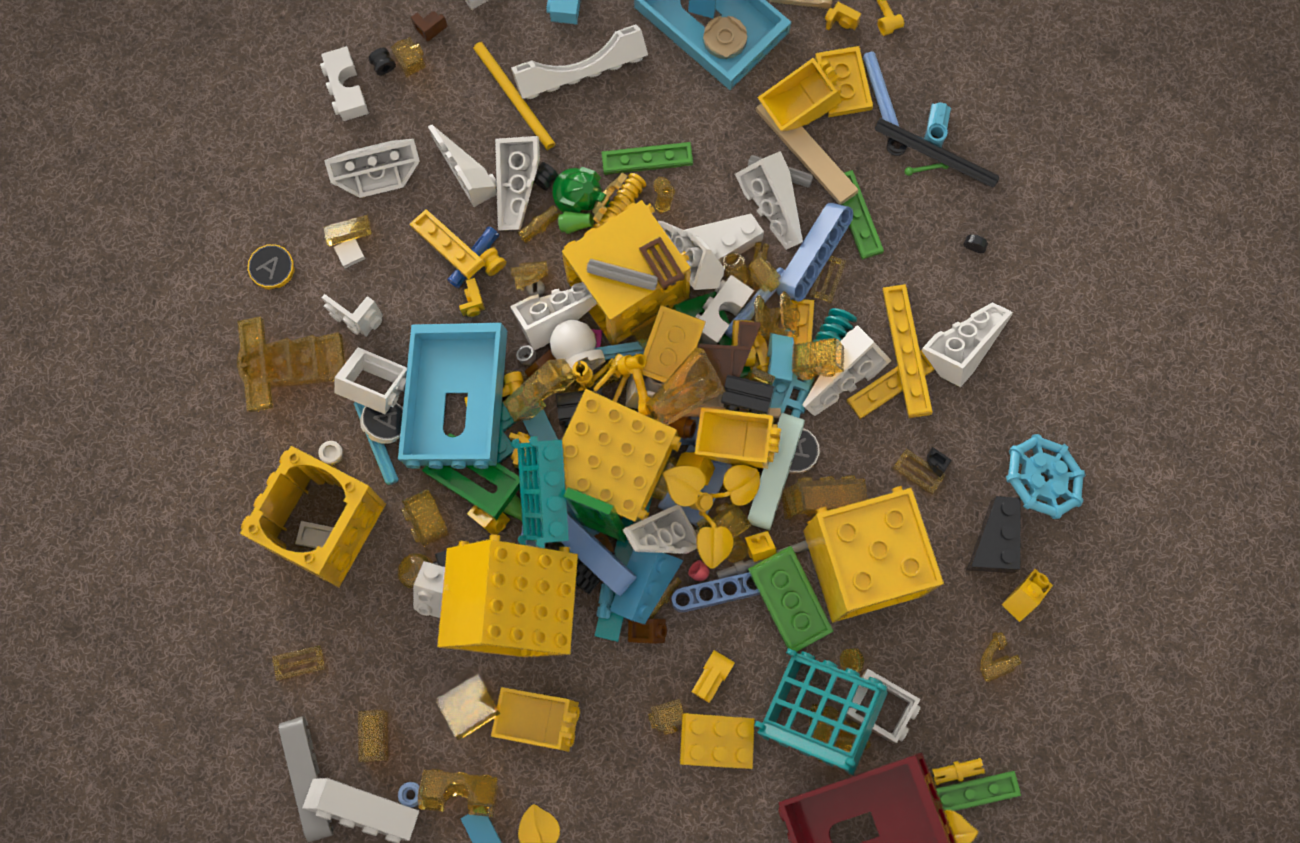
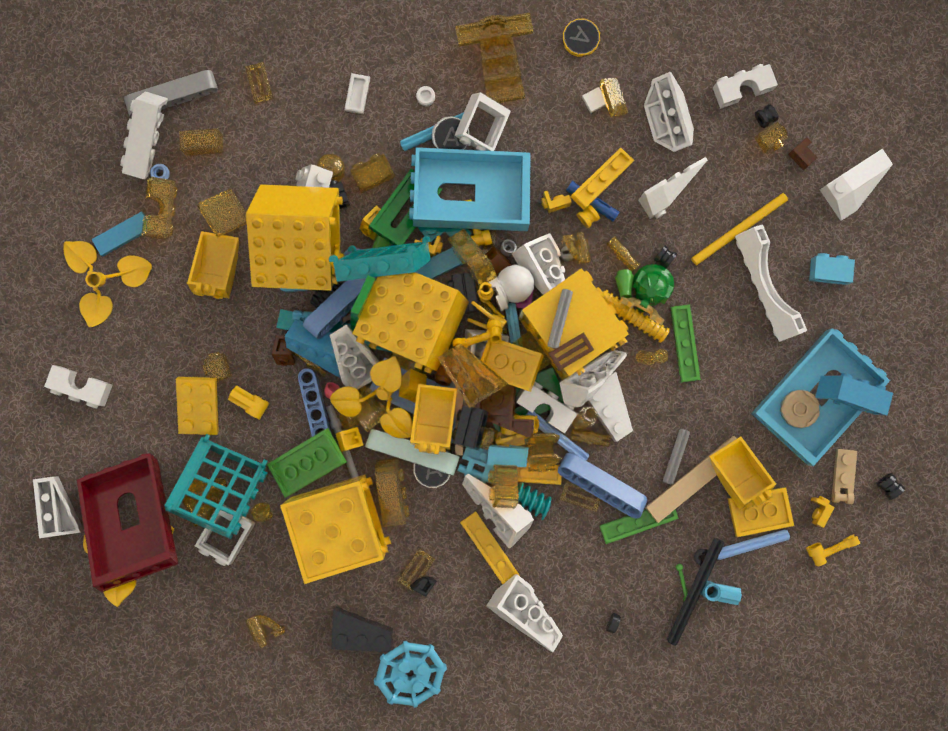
camera: 85 degrees right, 10 degrees up
(281, 497) = (372, 118): yellow piece -> none
(363, 319) = (535, 115): white bracket -> none
(515, 172) = (665, 232): white wedge -> none
(764, 274) = (578, 442): clear yellow brick -> none
(772, 190) = (658, 449): white wedge -> none
(907, 351) = (517, 561): yellow tile -> none
(958, 771) = (176, 594): yellow pin -> none
(979, 791) = (161, 607): bright green tile -> none
(1027, 595) = (313, 655): yellow slope -> none

